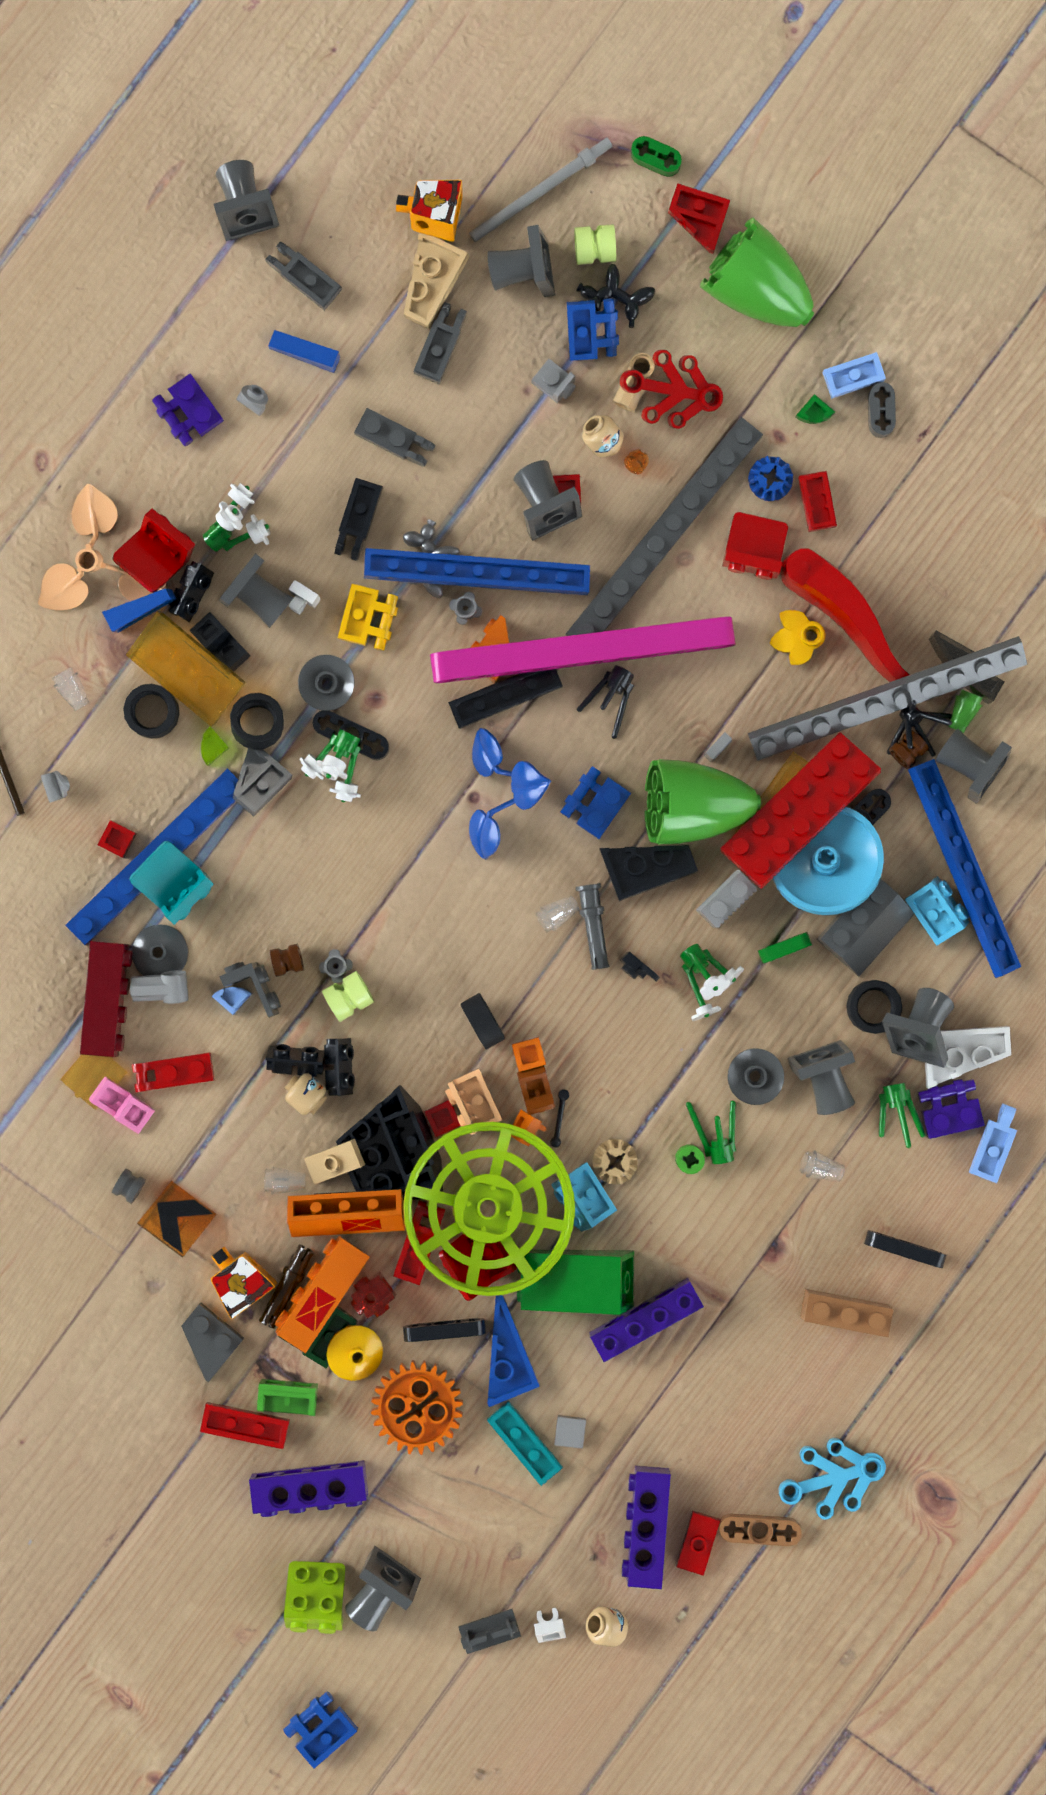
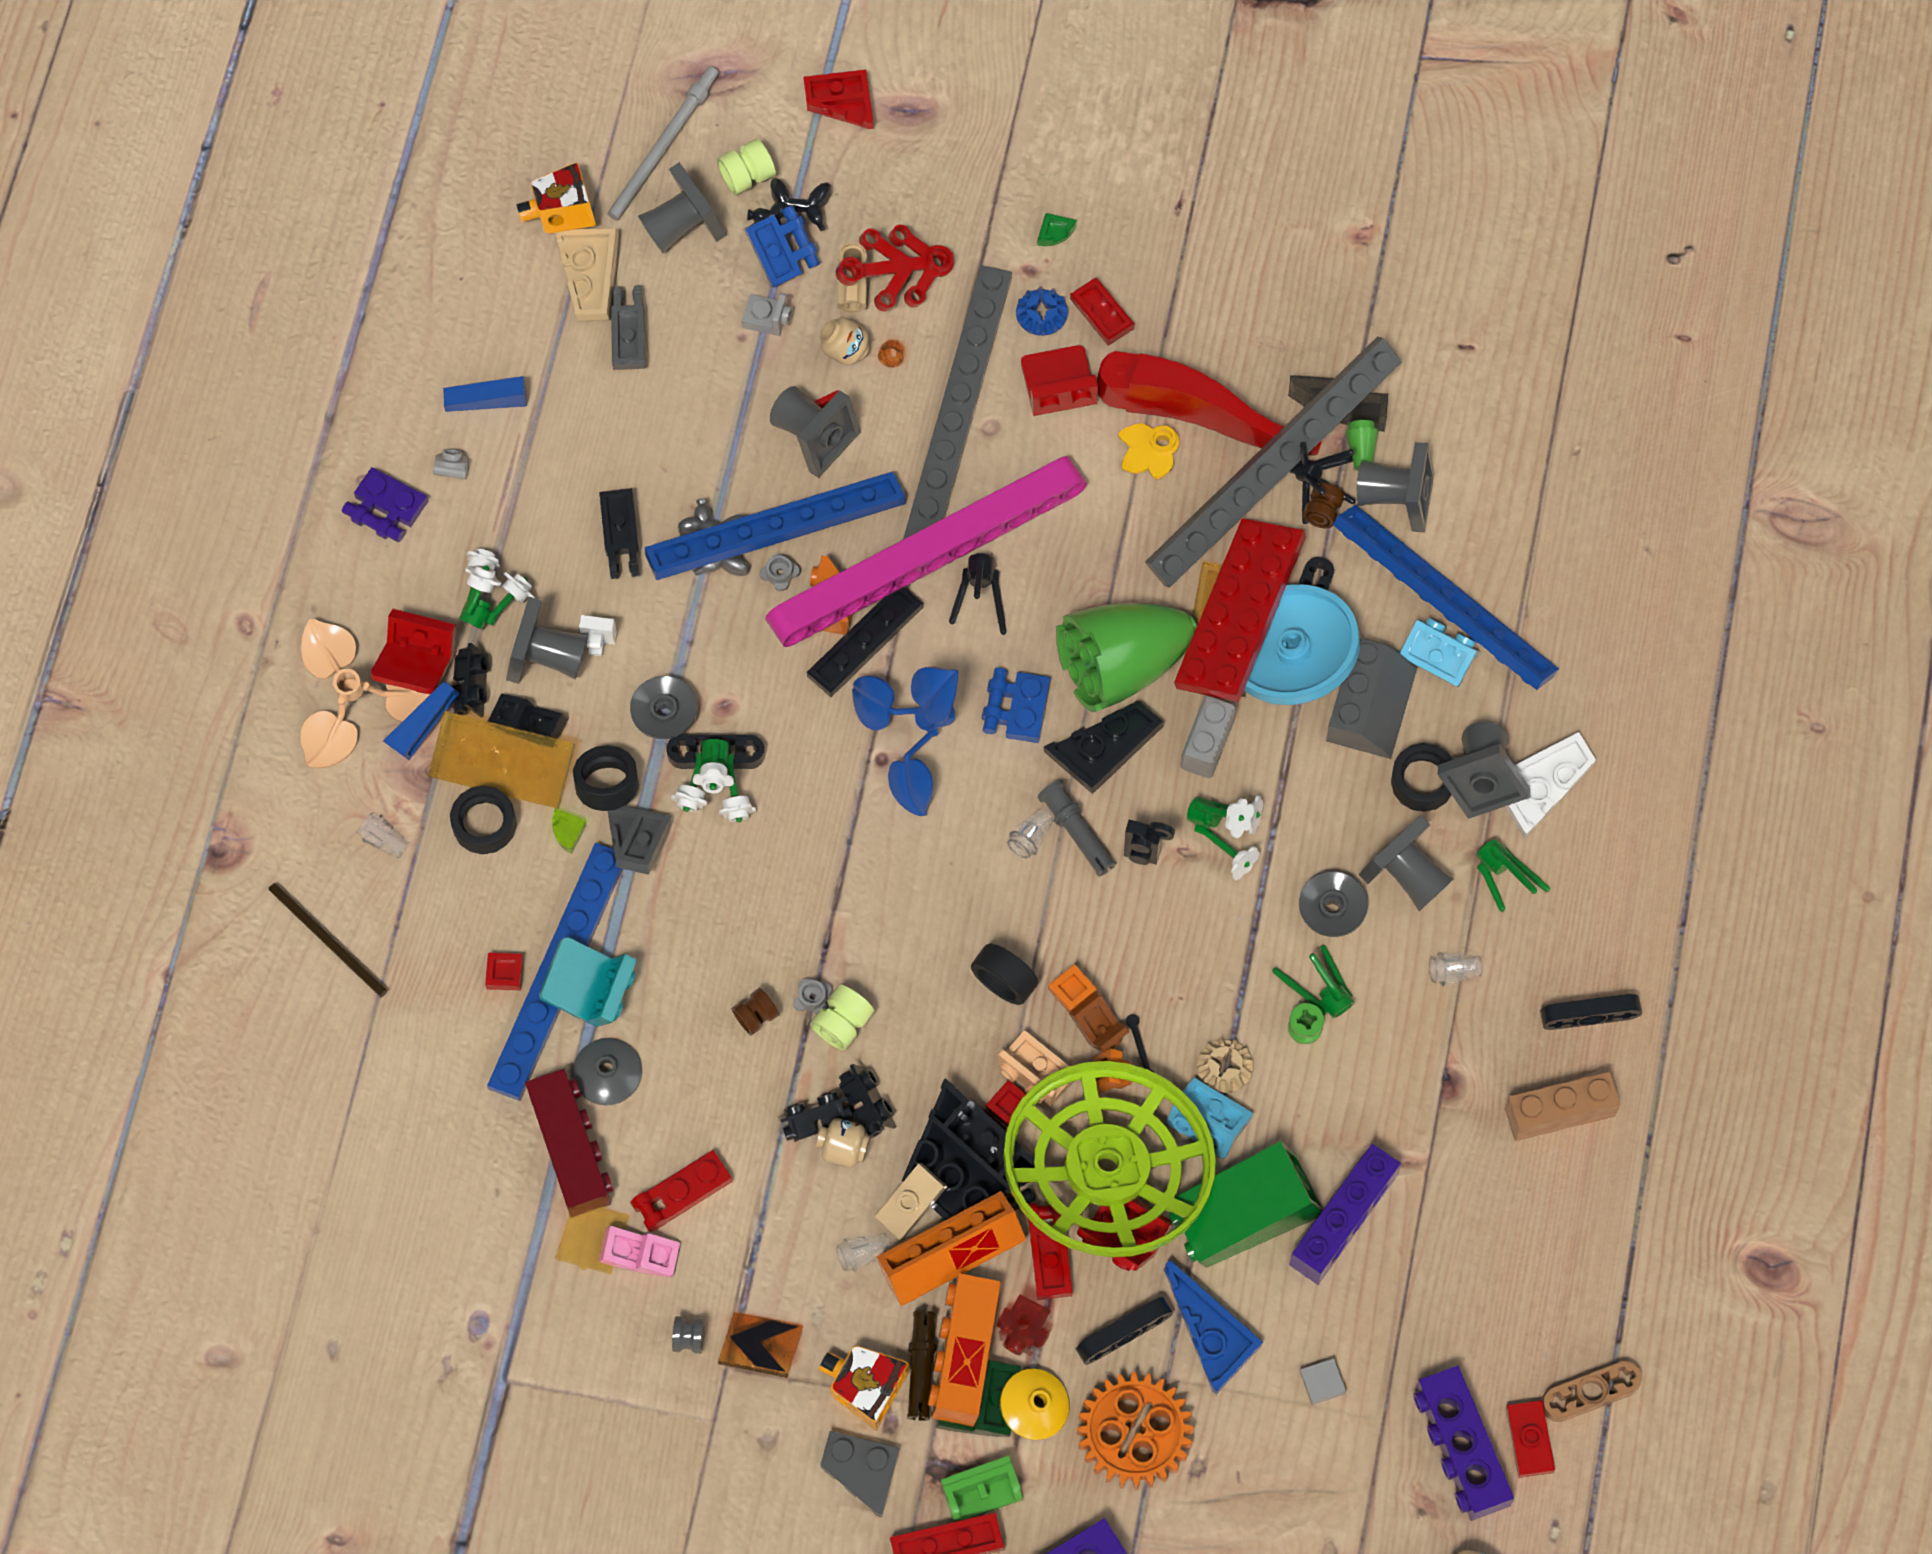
camera: 25 degrees left, 20 degrees down
(55, 785) = (410, 941): light grey plate -> none
(168, 986) = (632, 1099): light grey piece -> none
(232, 998) = (711, 1082): light blue tile -> none
(245, 208) = (356, 281): dark grey plant -> none
(259, 976) = (719, 1034): dark grey bracket -> none
(305, 277) = (451, 323): dark grey hinge -> none
(359, 615) = (667, 627): yellow plate -> none
(392, 436) = (620, 439): dark grey hinge -> none
(524, 1443) = (1277, 1419): teal tile -> none
(658, 150) = (768, 63): green beam -> none
(715, 750) = (1121, 587): light grey tile -> none
(760, 279) = (934, 126): bright green cylinder -> none
(785, 947) = (1296, 759): green beam -> none
(836, 1476) = (1646, 1293): medium azure plant -> none
(854, 375) = (1077, 178): light blue plate -> none
(888, 409) = (1129, 196): dark grey beam -> none
(952, 1117) = (1570, 854): dark purple plate -> none
(994, 1146) = (1629, 862): light blue plate -> none

